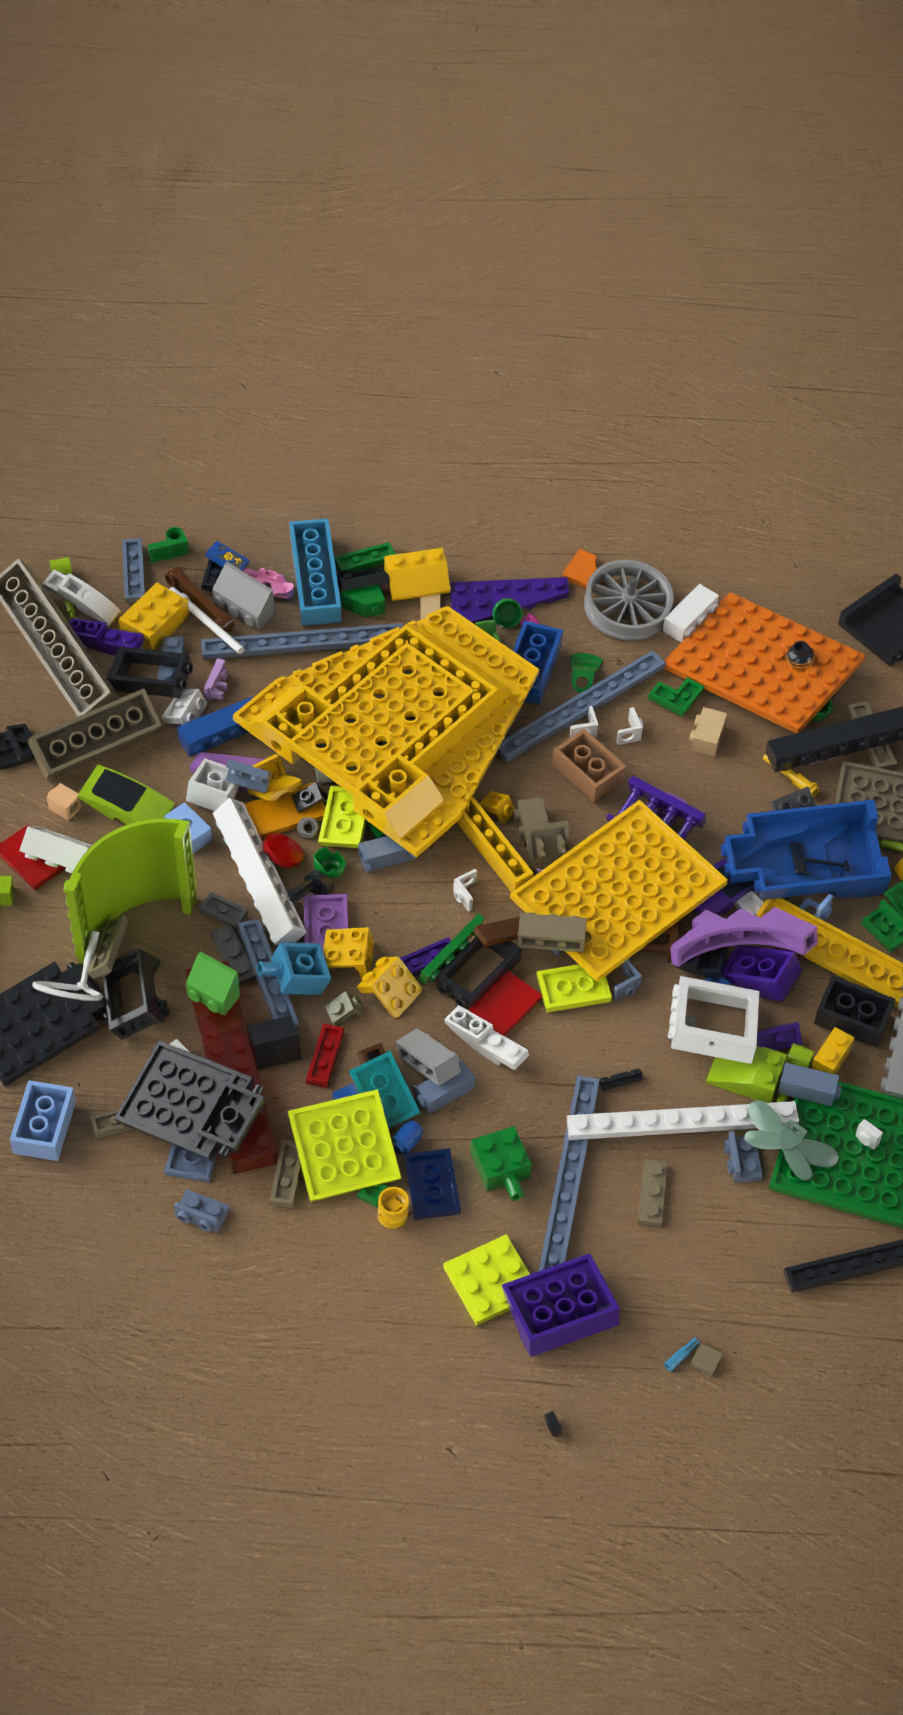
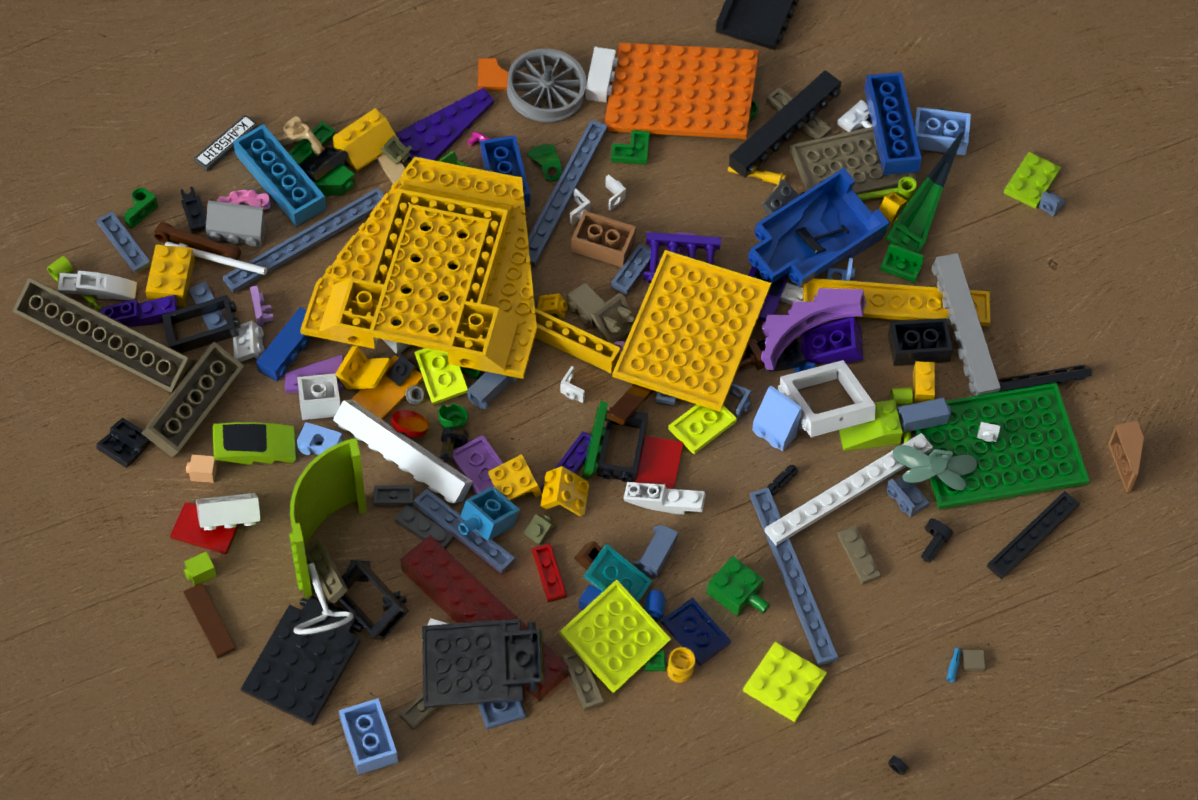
camera: 30 degrees left, 5 degrees up
(201, 1211) = (536, 743): sand blue bracket -> none
(213, 984) = (438, 560): bright green slope -> none
(221, 554) = (197, 195): tile -> none
(248, 776) = (347, 375): sand blue bracket -> none
(274, 1042) = (507, 580): black slope -> none
(280, 525) = (224, 143): none -> tile
(357, 540) = (295, 131): none -> tan animal
(428, 1056) = (633, 534): light grey brick -> none
(439, 595) = (396, 150): none -> olive bracket
(507, 613) = (458, 140): green hair -> none
(552, 932) = (667, 389): dark tan brick -> none
(561, 1304) = (850, 673): dark purple slope -> none
(599, 808) = (632, 269): none -> sand blue plate
(648, 1016) = (777, 419): none -> light blue slope
(708, 731) = (675, 168): tan brick -> none
(753, 1214) = (941, 534): none -> black piece
(779, 1036) = (879, 386): dark purple plate -> none
(800, 655) = (711, 73): black piece -> none

